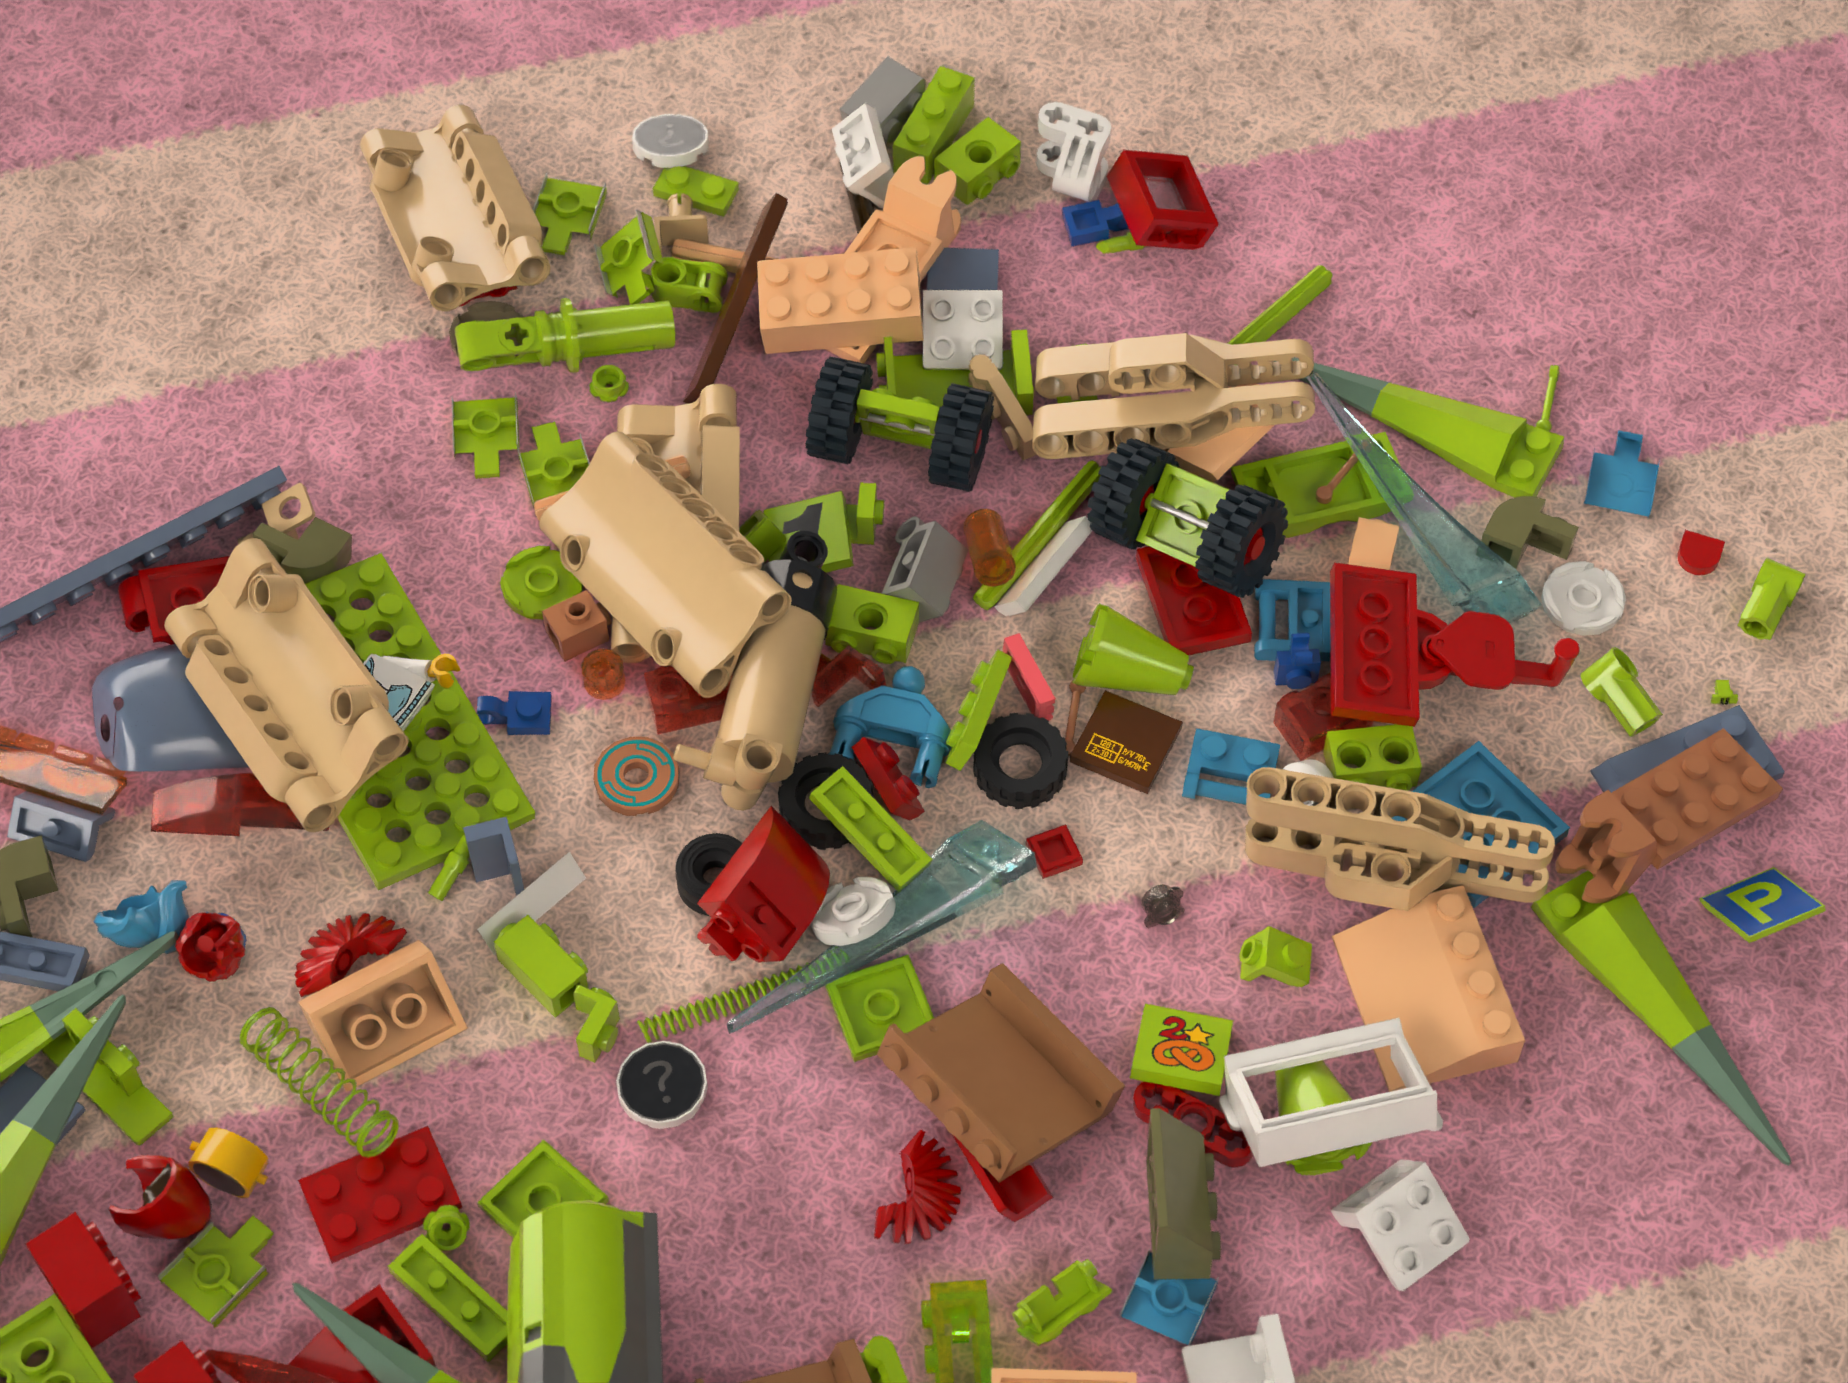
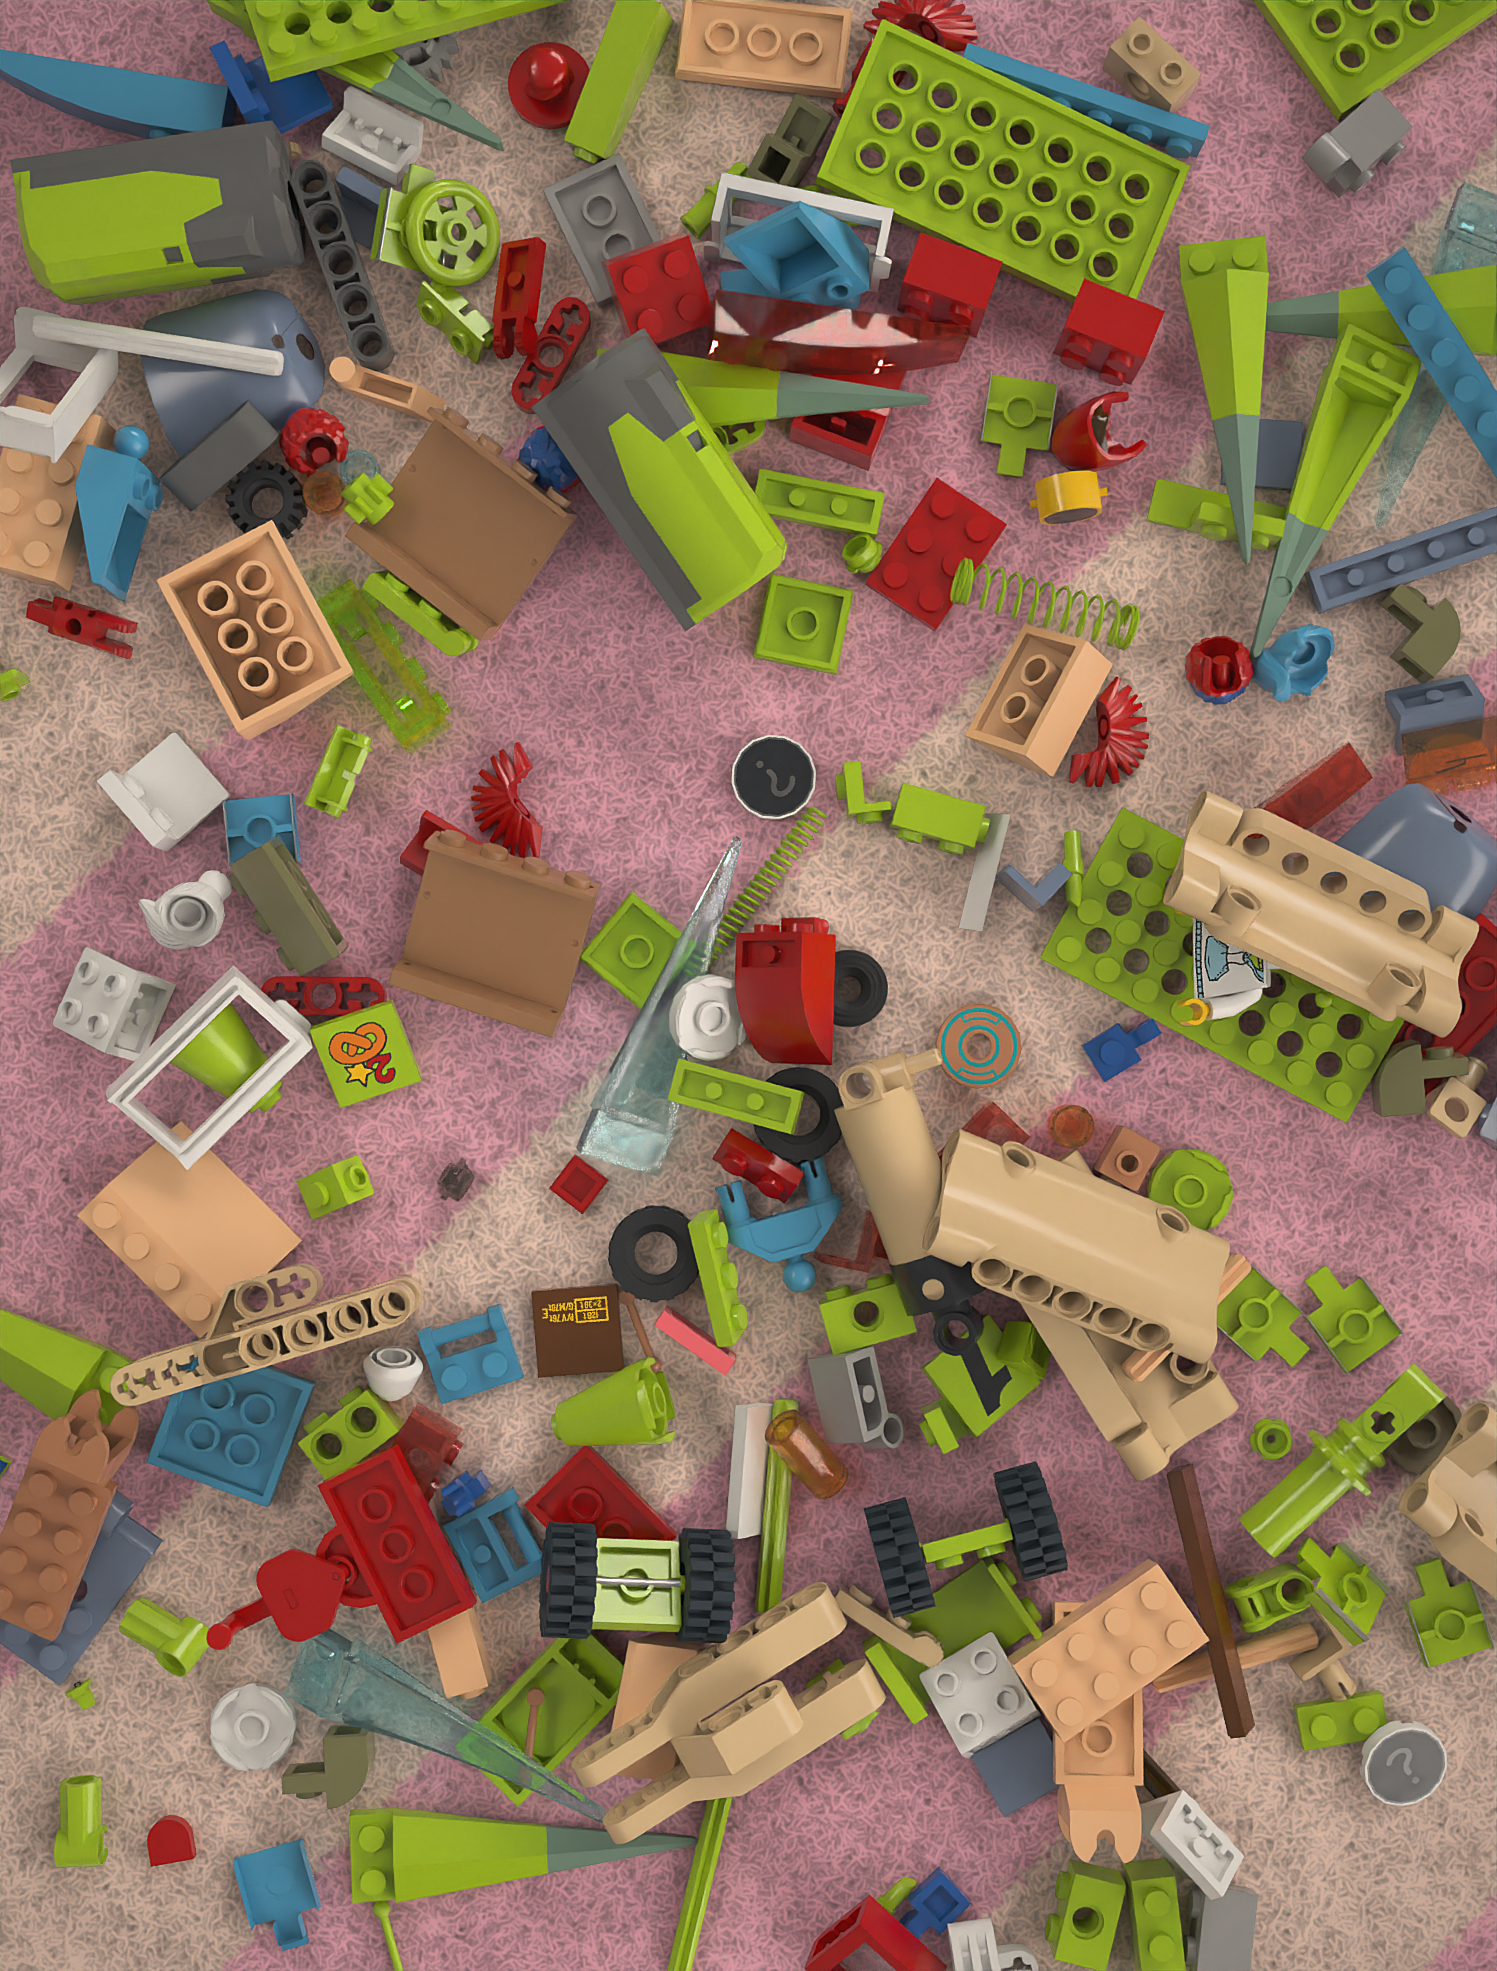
camera: 150 degrees right, 30 degrees up
(1276, 1254) = (188, 912): none -> white hair

